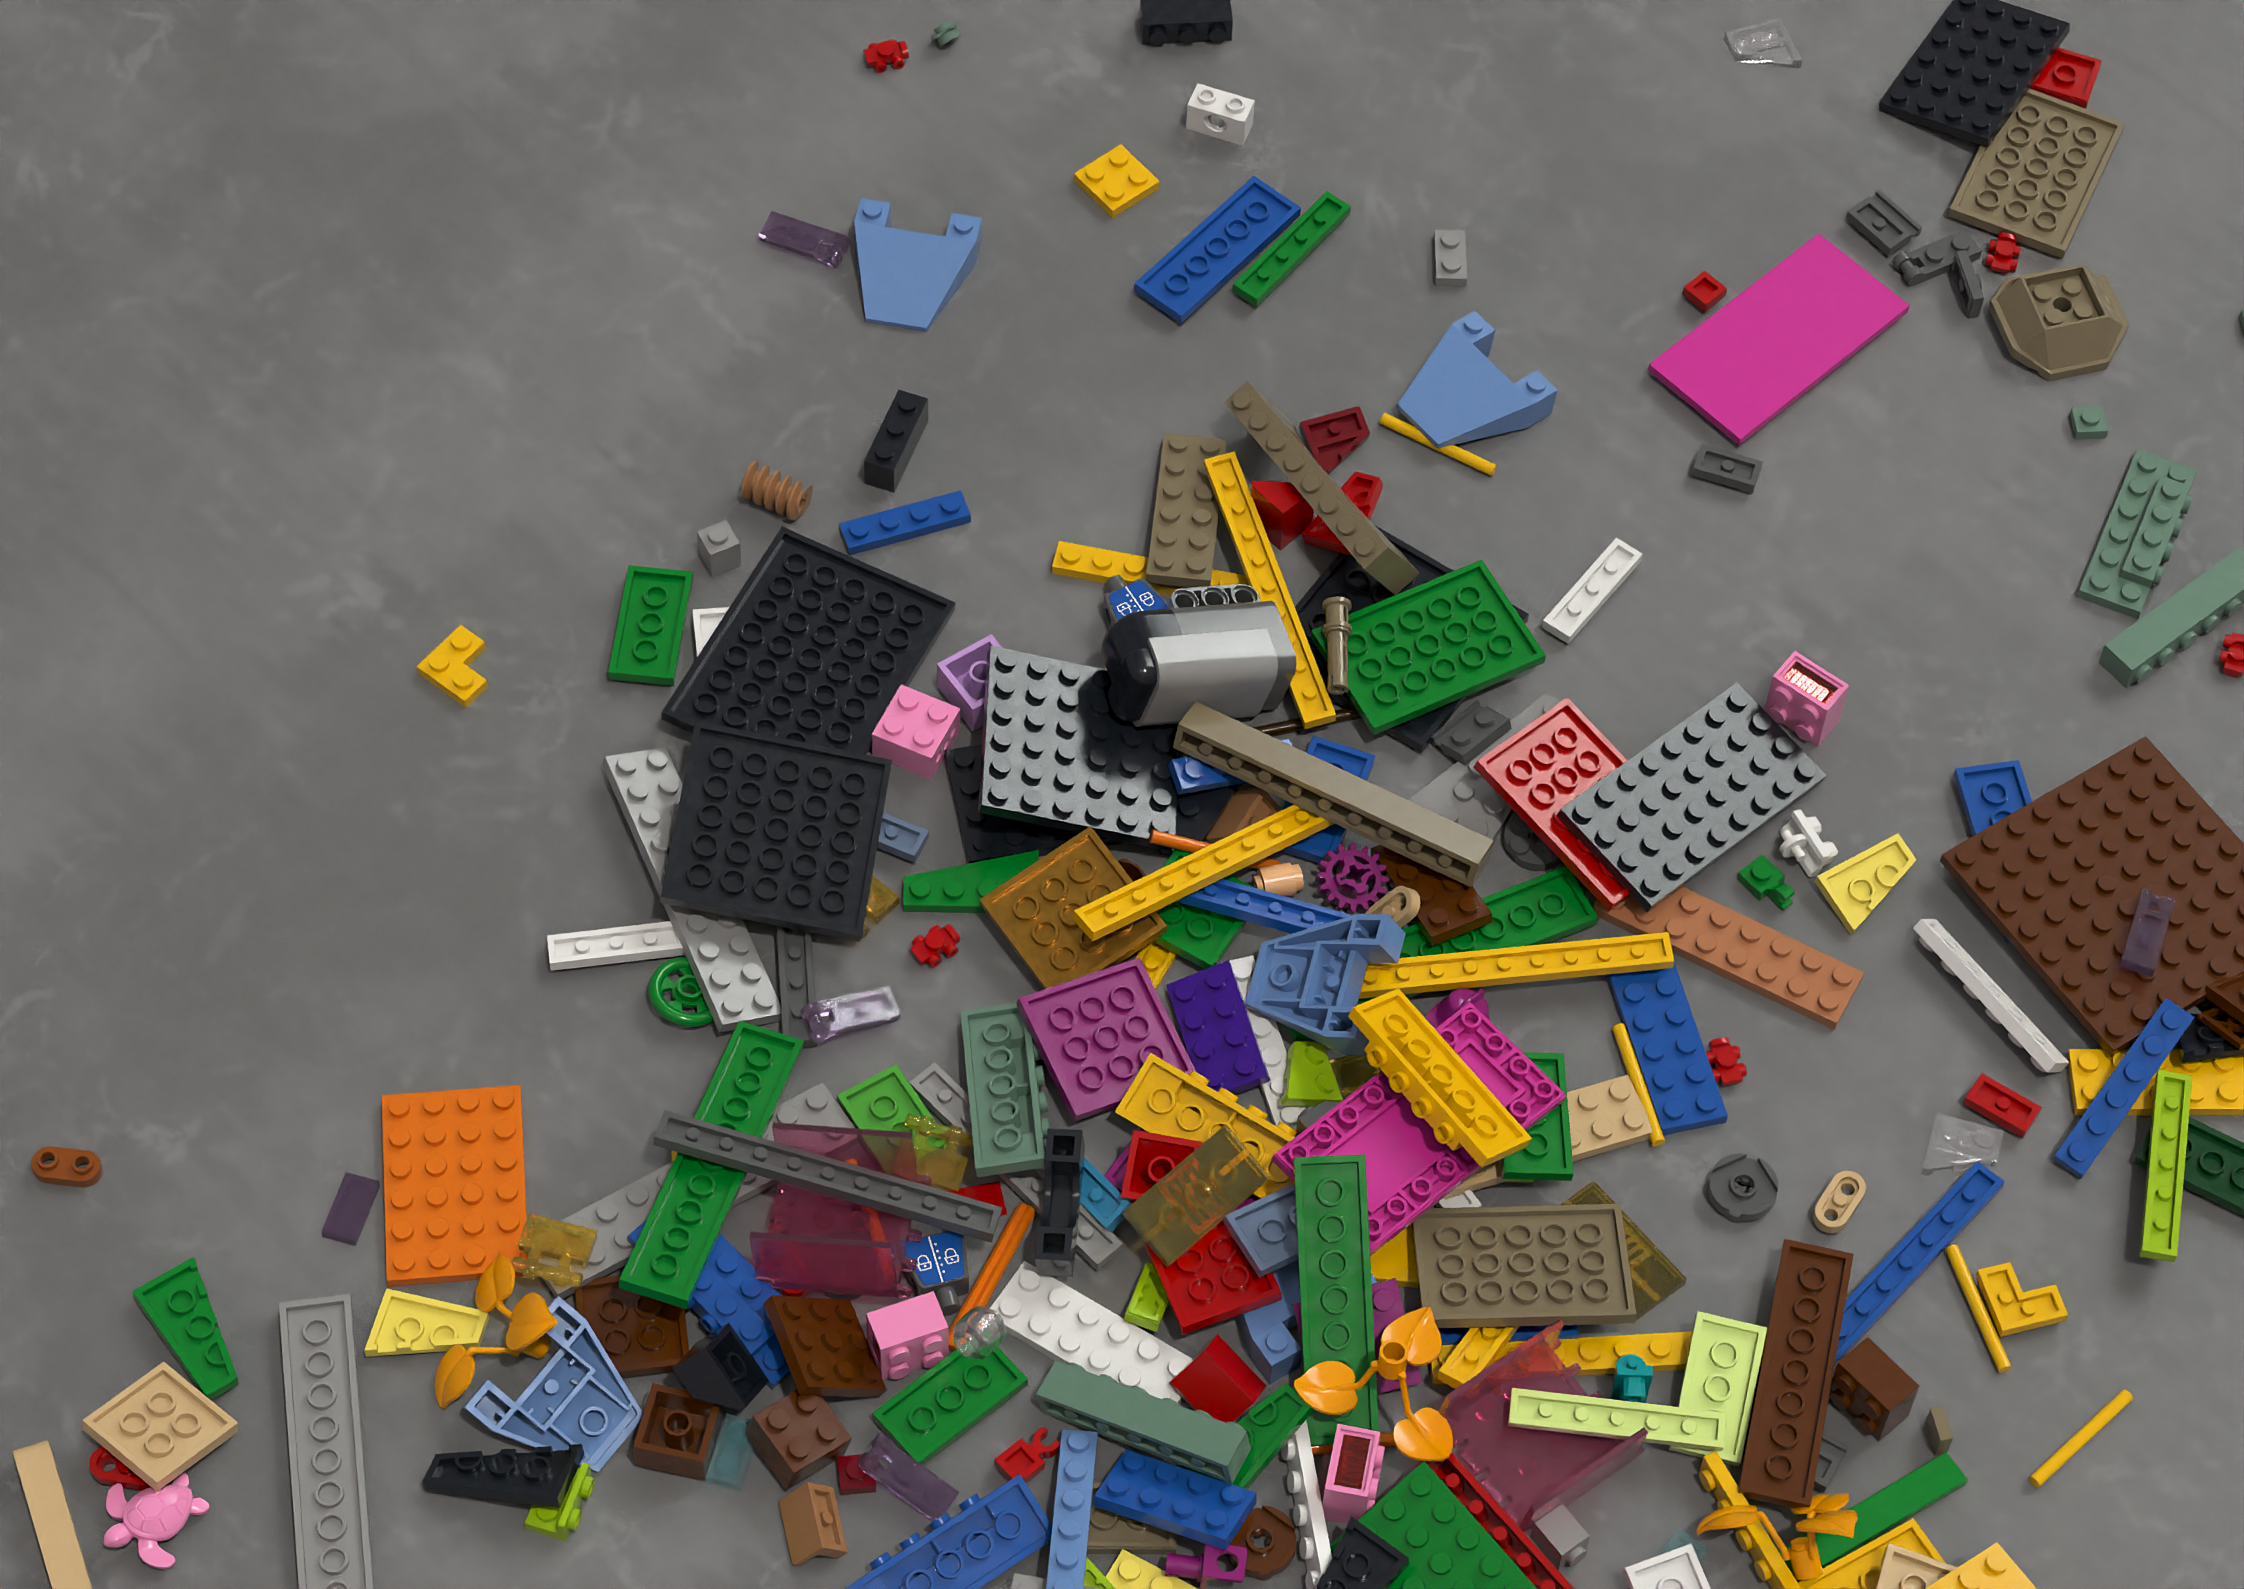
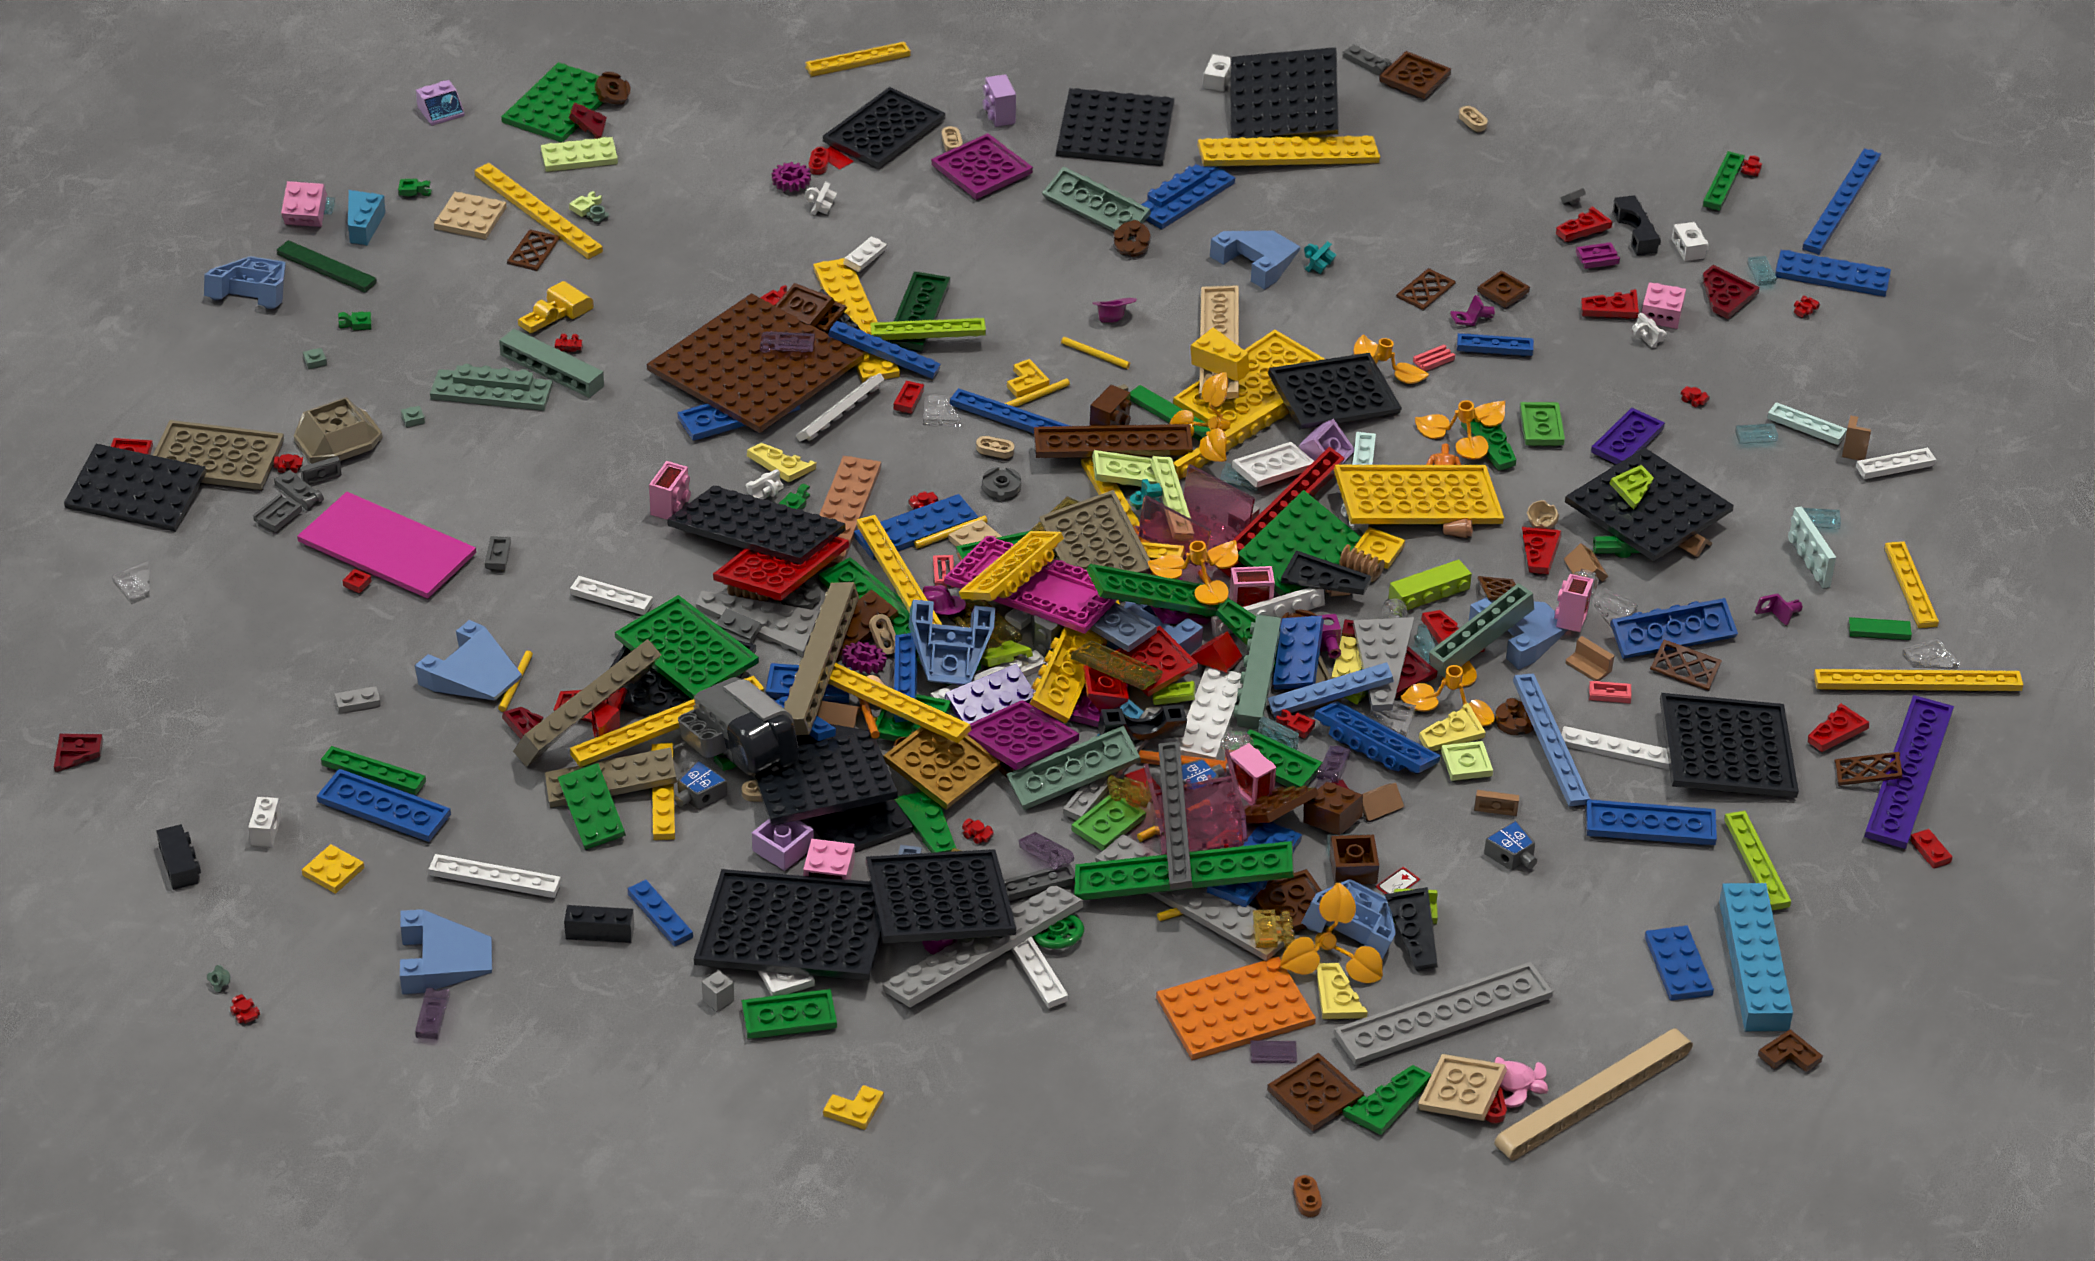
camera: 105 degrees left, 15 degrees down
(245, 1234) = (1315, 1091): none -> reddish brown plate
(632, 1501) = (1399, 880): none -> white sticker
(721, 1370) = (1315, 840): black slope -> none
(774, 493) = (660, 974): medium nougat piece -> none
(1013, 1413) = (1278, 732): none -> clear light blue plate
(1036, 347) = (494, 875): none -> white plate
(1128, 471) = (591, 806): none -> green plate
(1337, 632) = (698, 677): dark tan pin -> none
(1549, 1040) = (935, 565): none -> coral tile
(2194, 1491) = (1113, 310): none -> magenta piece

